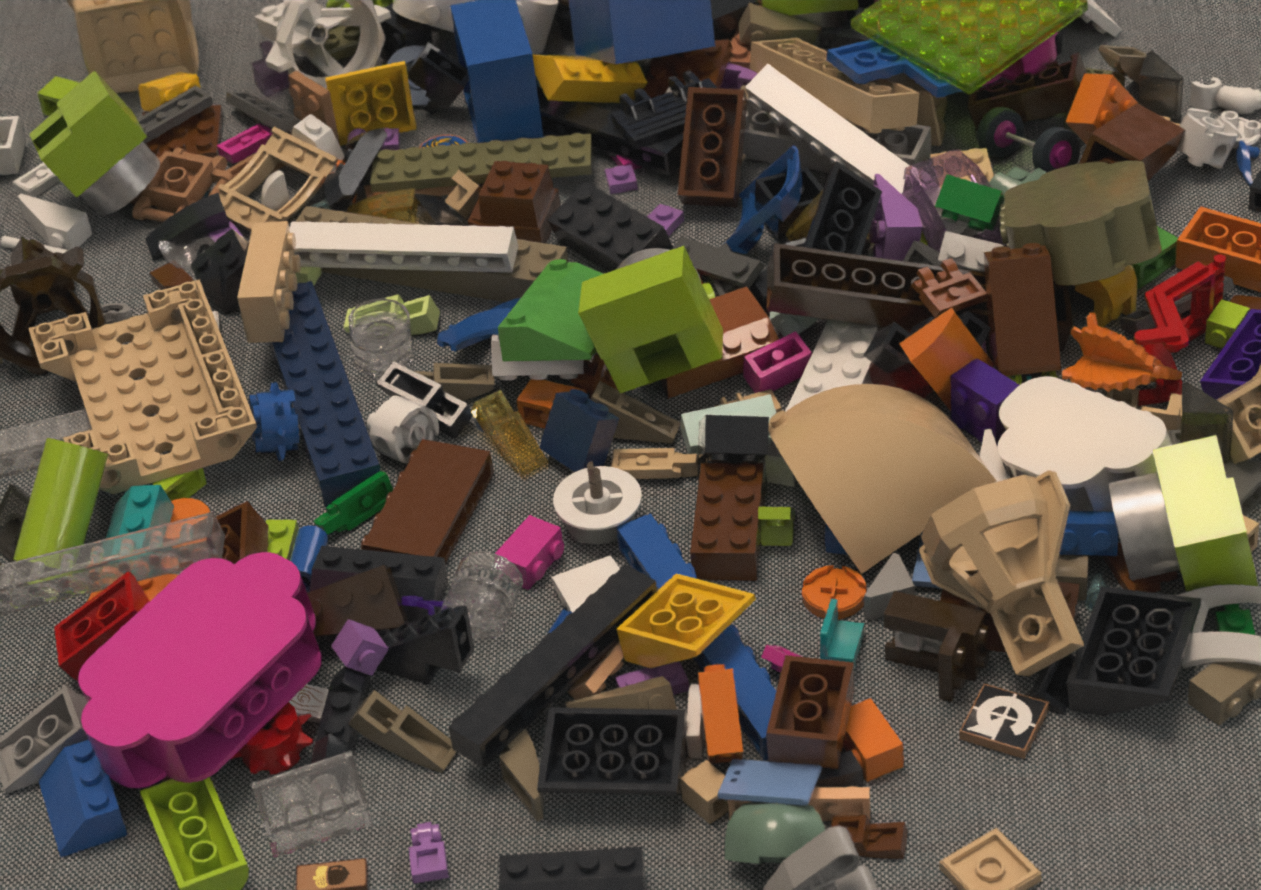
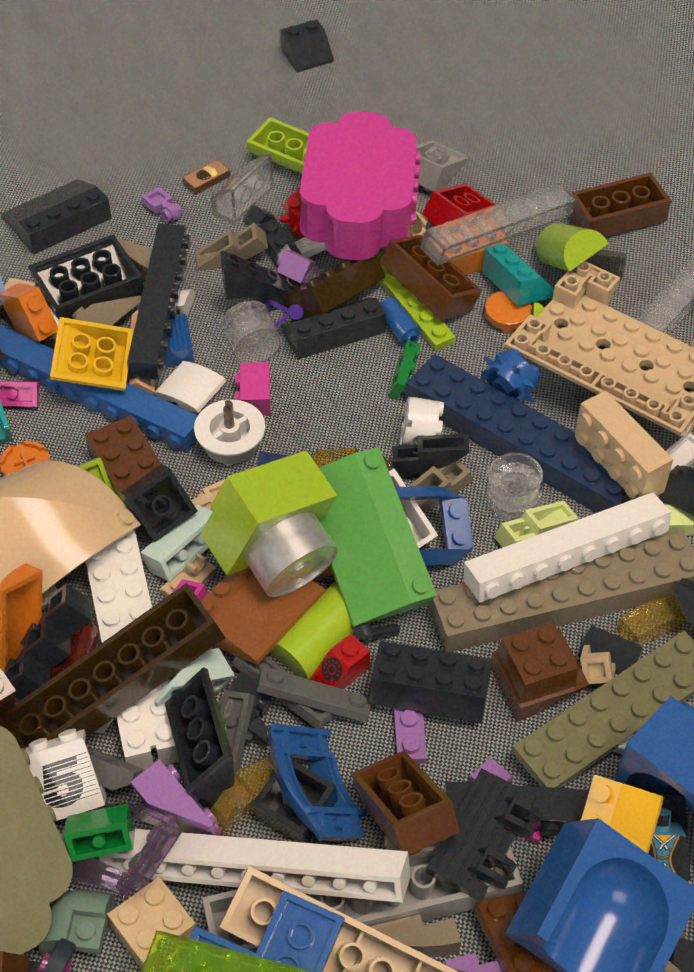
camera: 140 degrees right, 10 degrees up
(431, 501) = (353, 389): reddish brown brick -> none
(953, 290) = (43, 682): dark orange plate -> none

